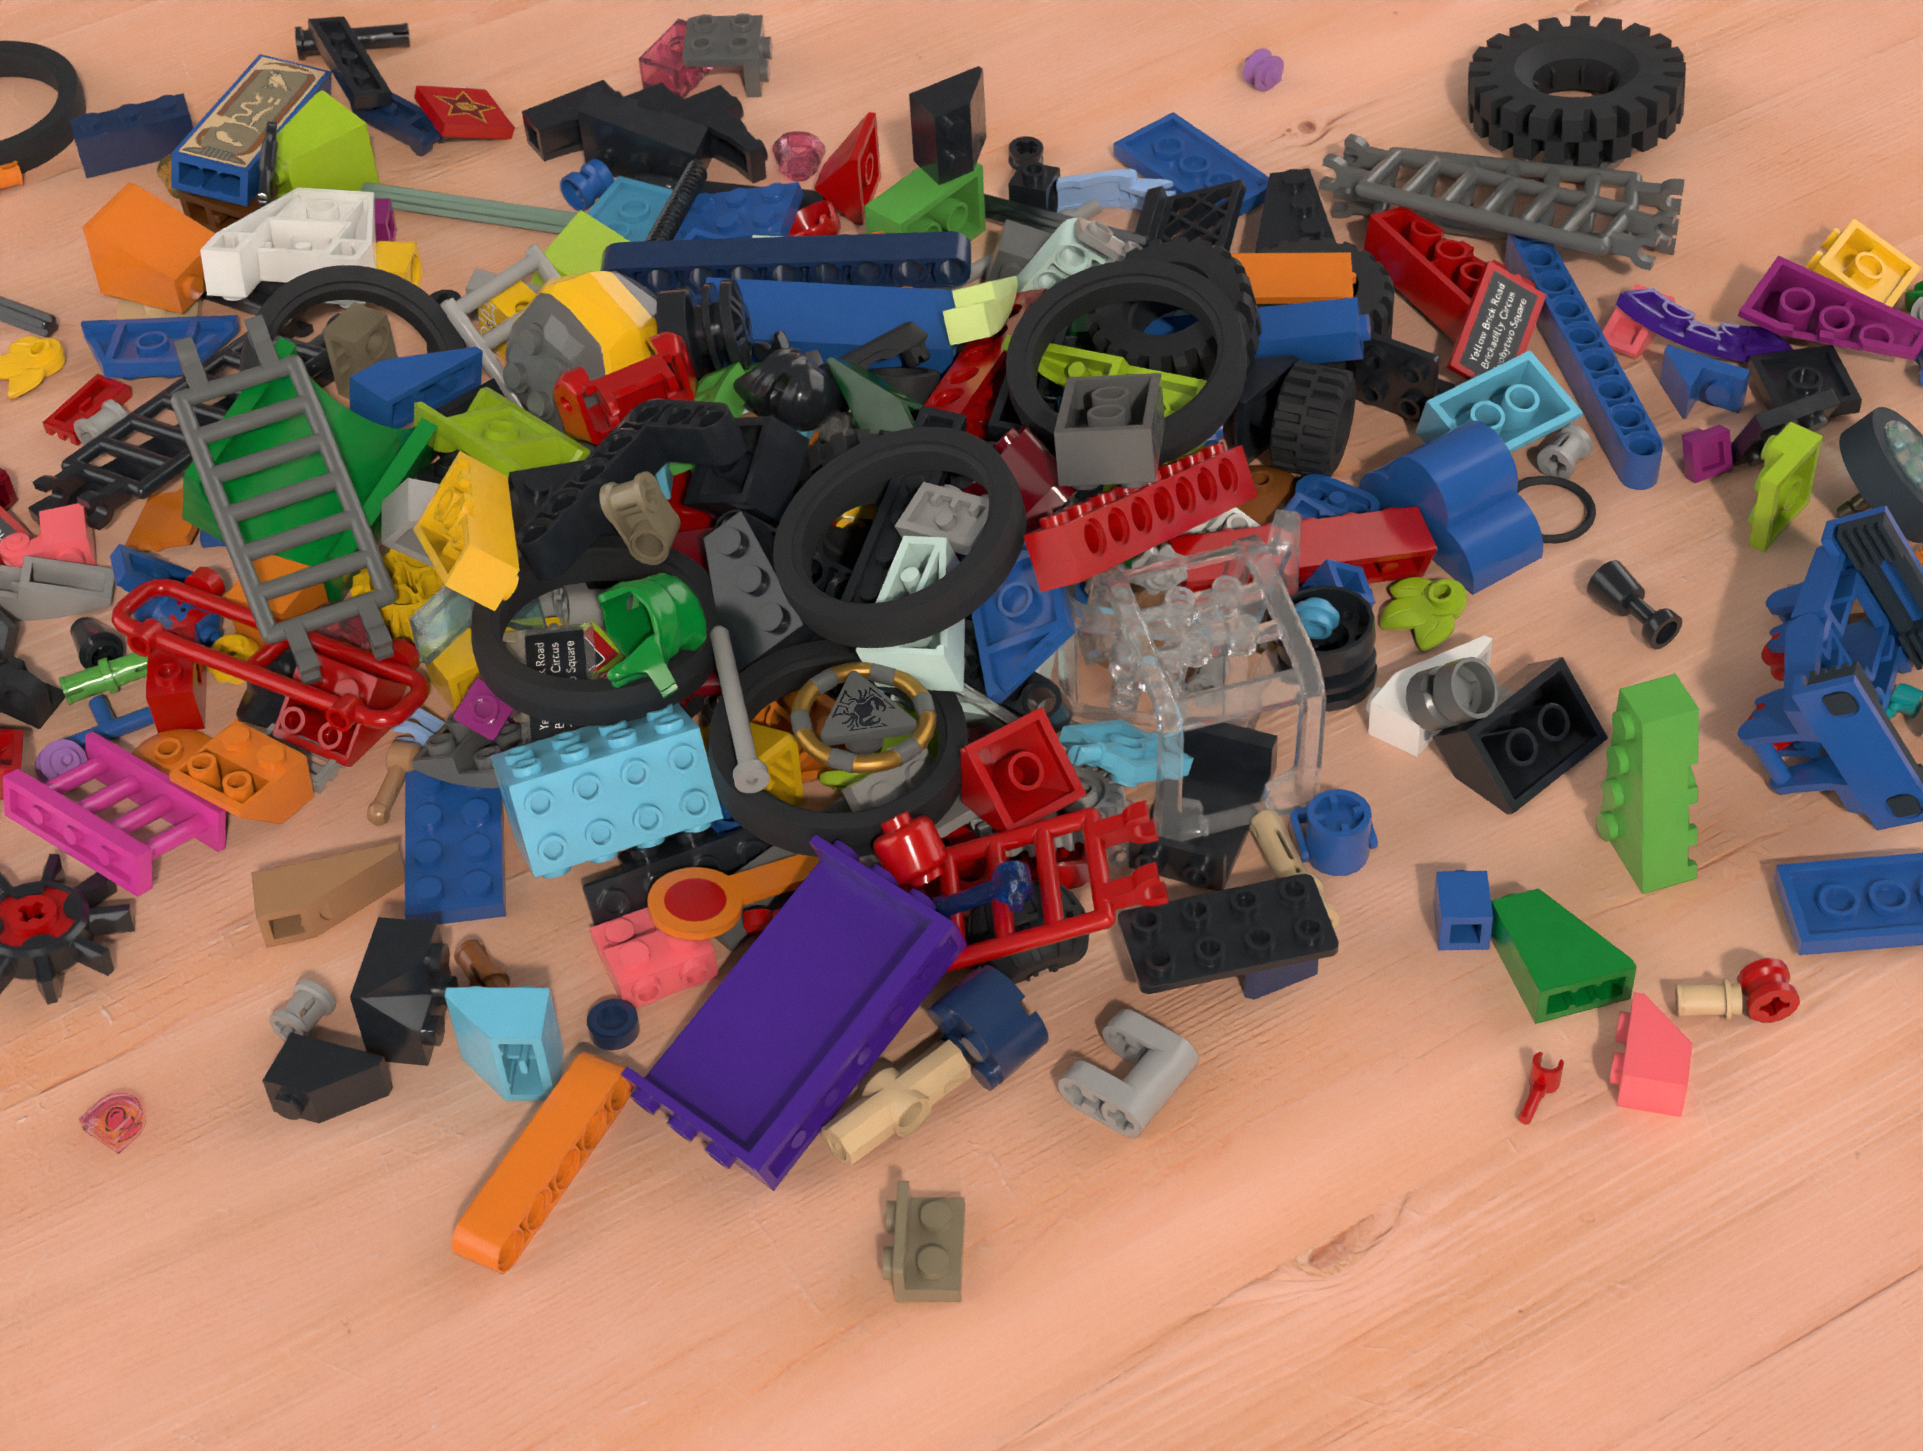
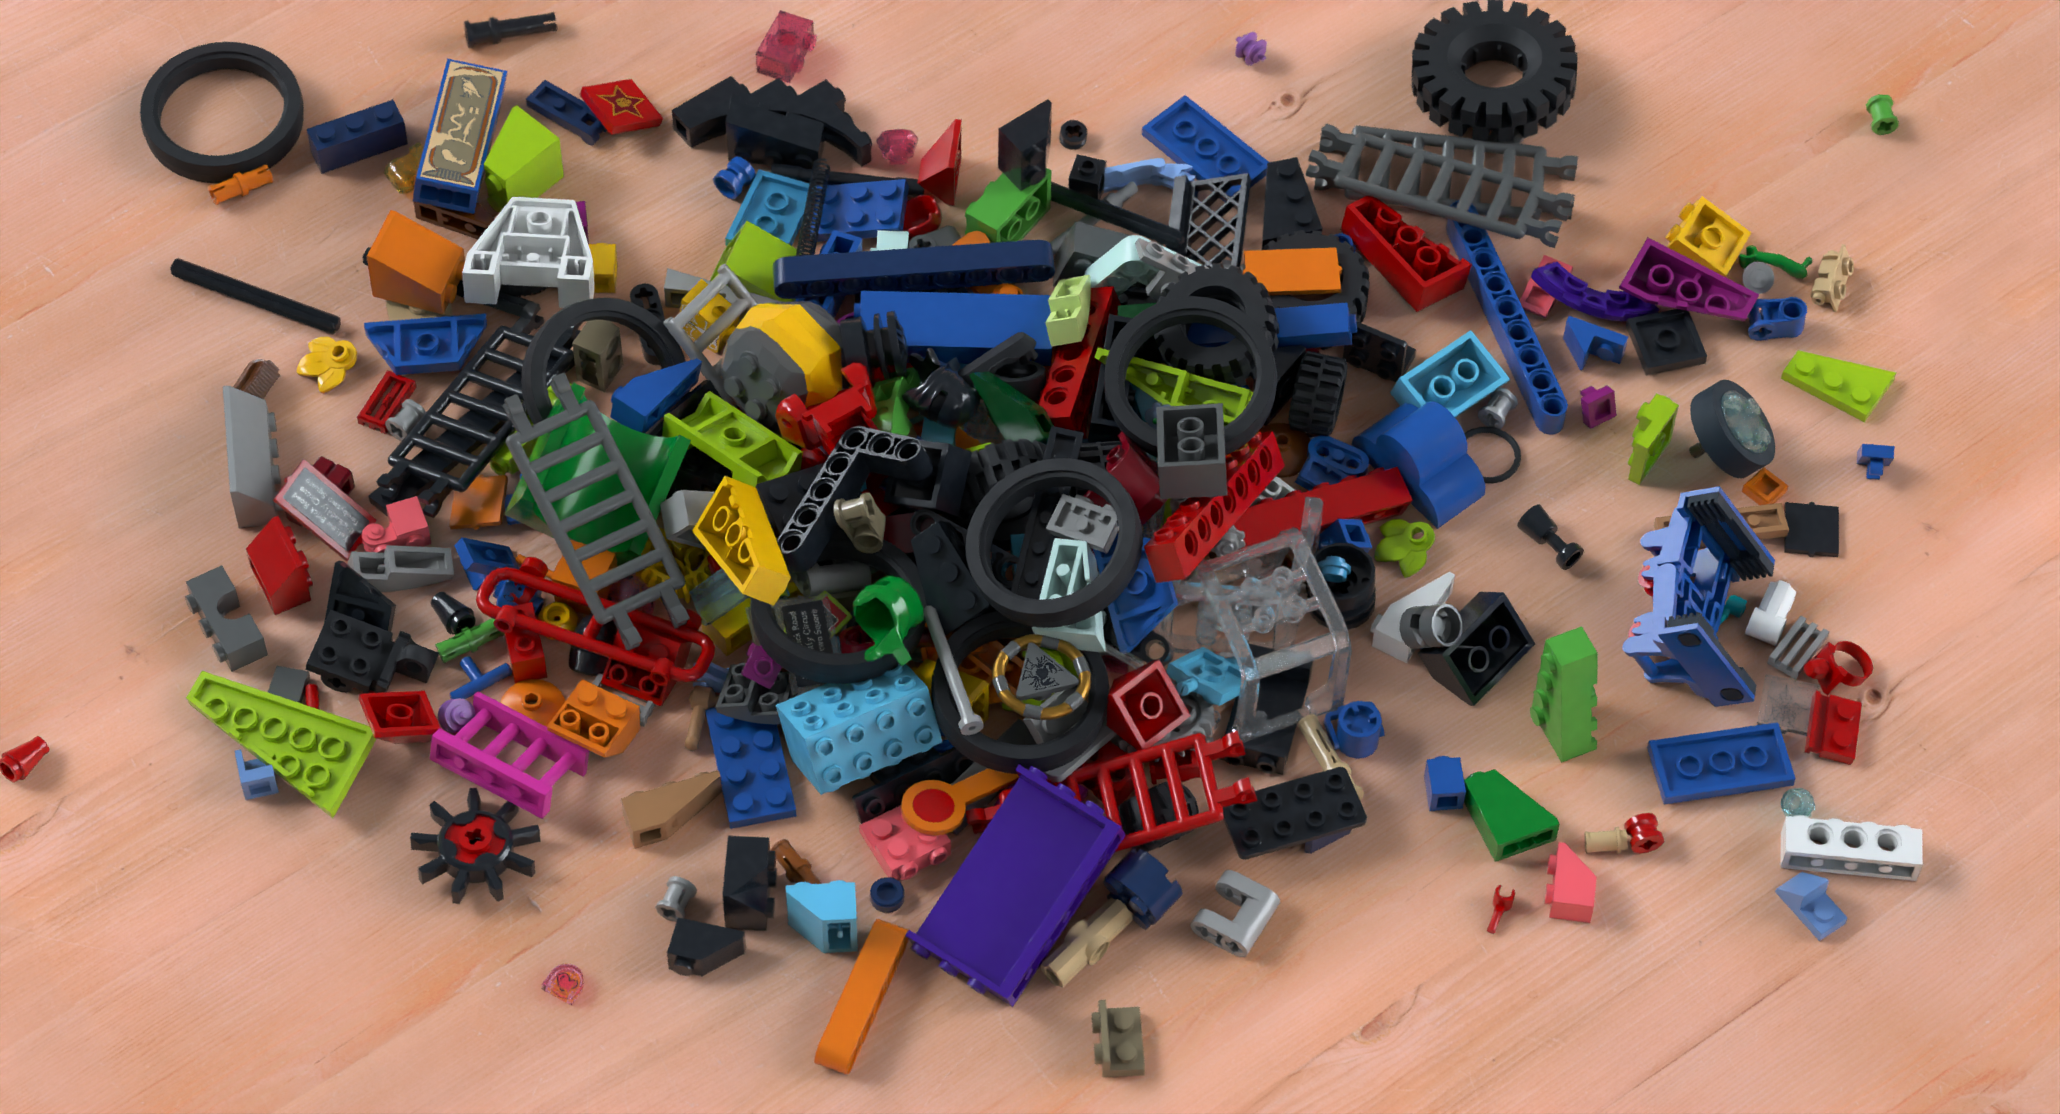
camera: 10 degrees left, 10 degrees up
(267, 163) = (491, 200): black piece -> none
(349, 63) = (520, 62): black plate -> none
(472, 208) = (643, 200): sand green axle -> none
(730, 42) = (825, 36): dark grey bracket -> none
(910, 849) = (1081, 770): red head -> none
(1009, 886) = (1151, 794): clear blue piece -> none
(1496, 322) = (1444, 303): piece -> none
(1807, 412) = (1644, 392): black plate -> none

